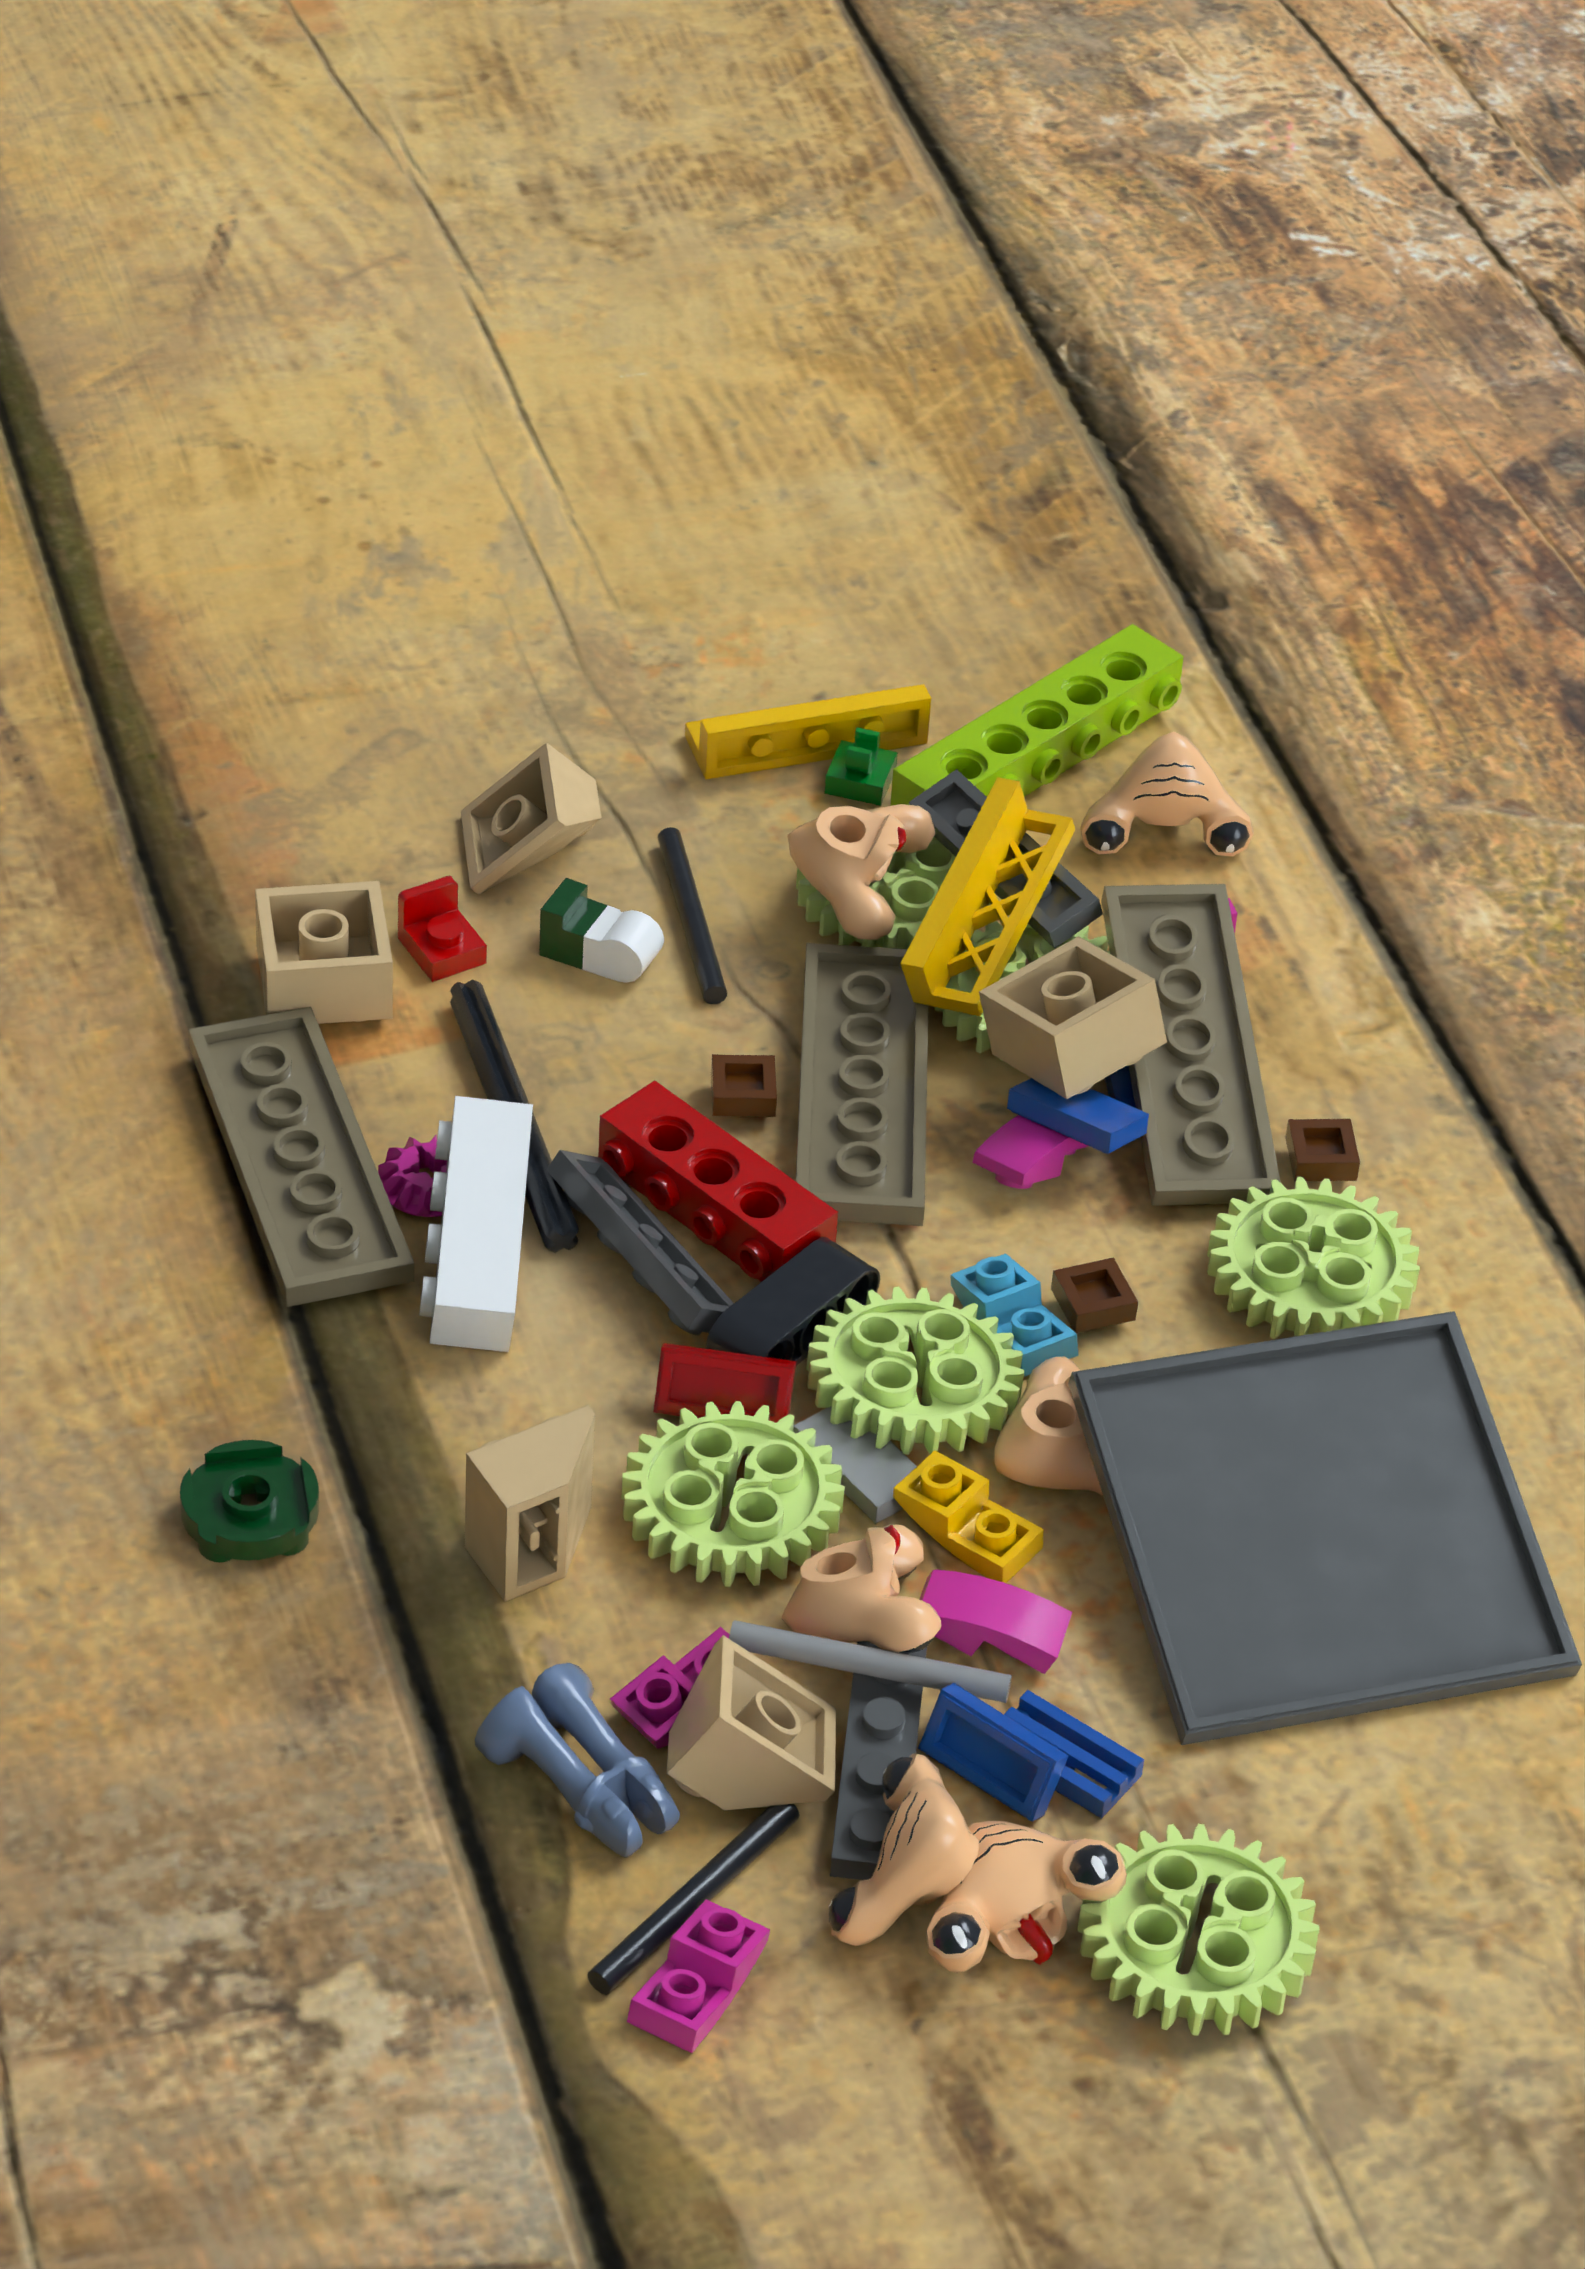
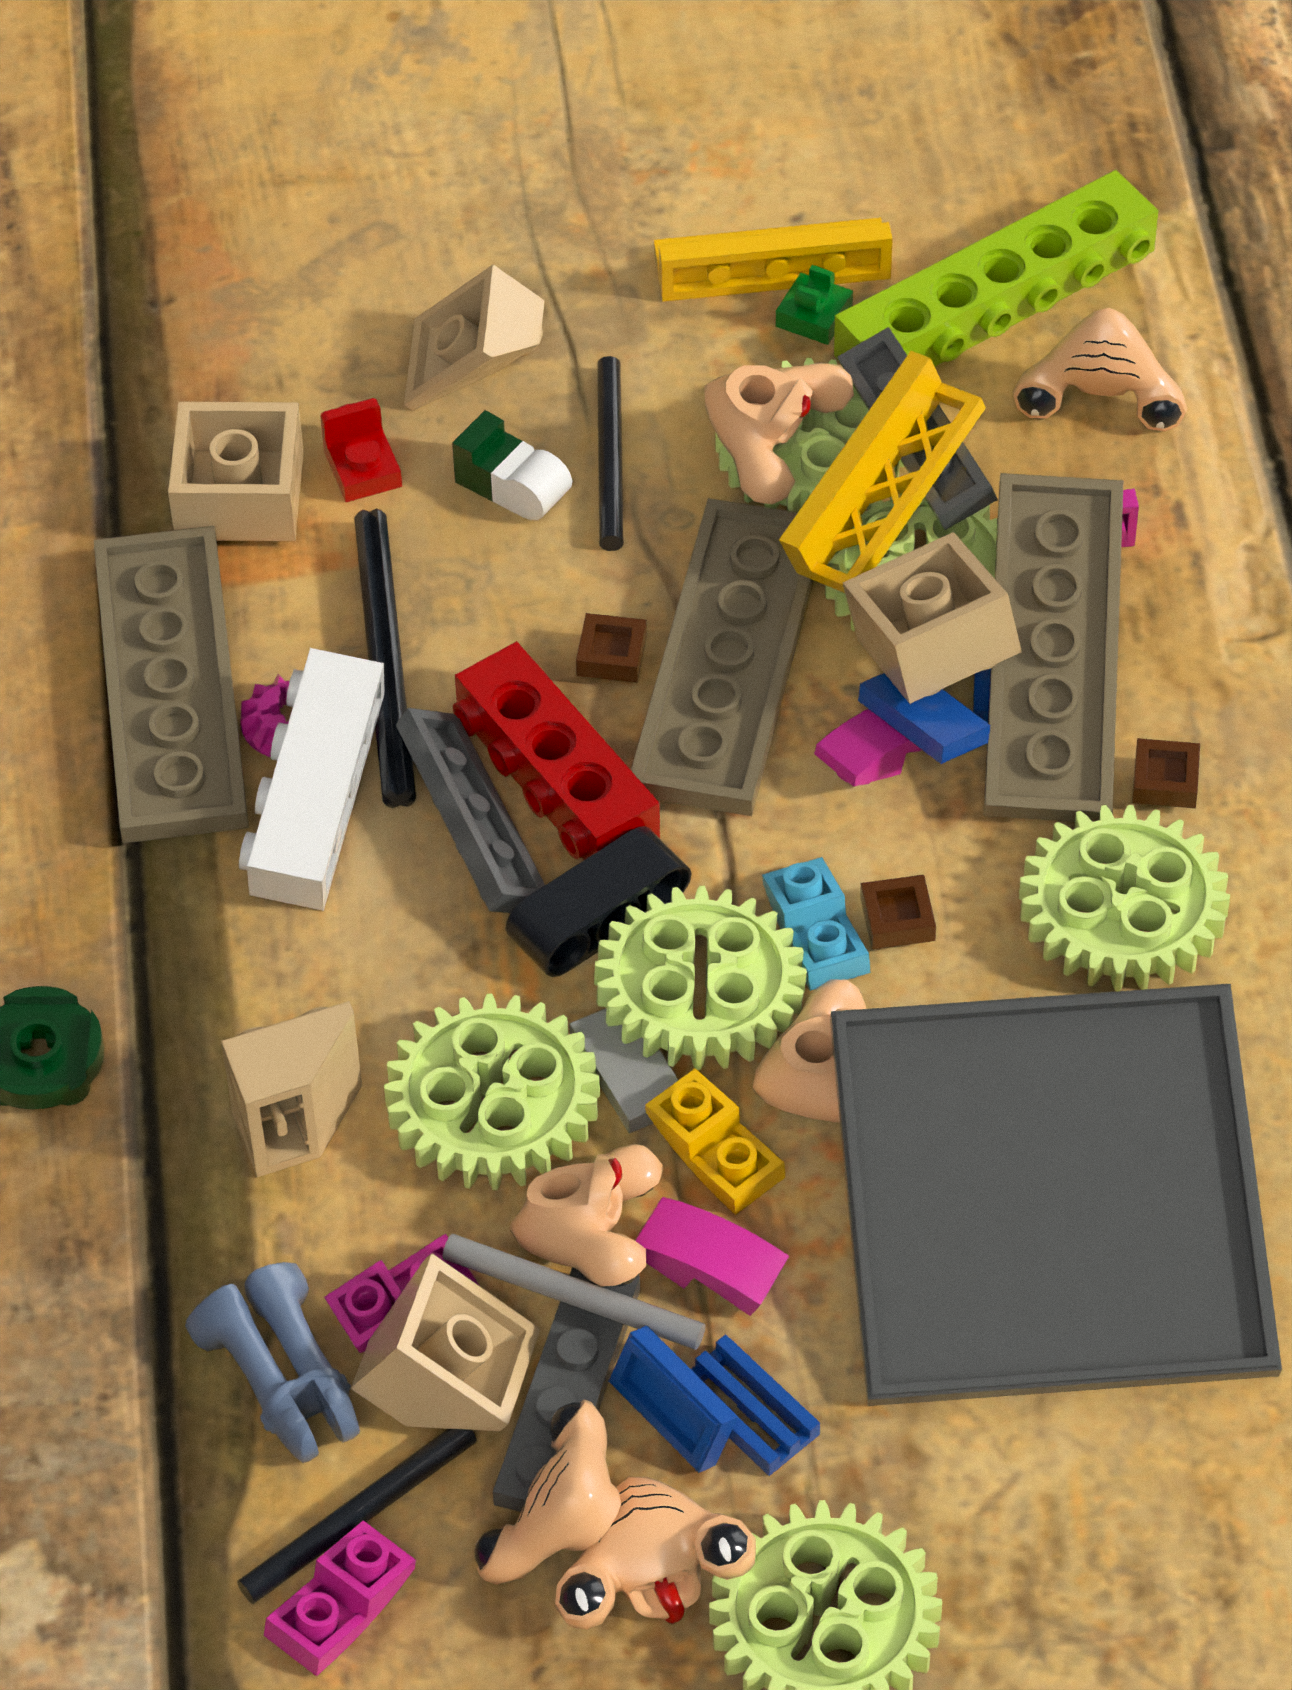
camera: 15 degrees right, 10 degrees up
(696, 1376) = (502, 967): red tile -> none

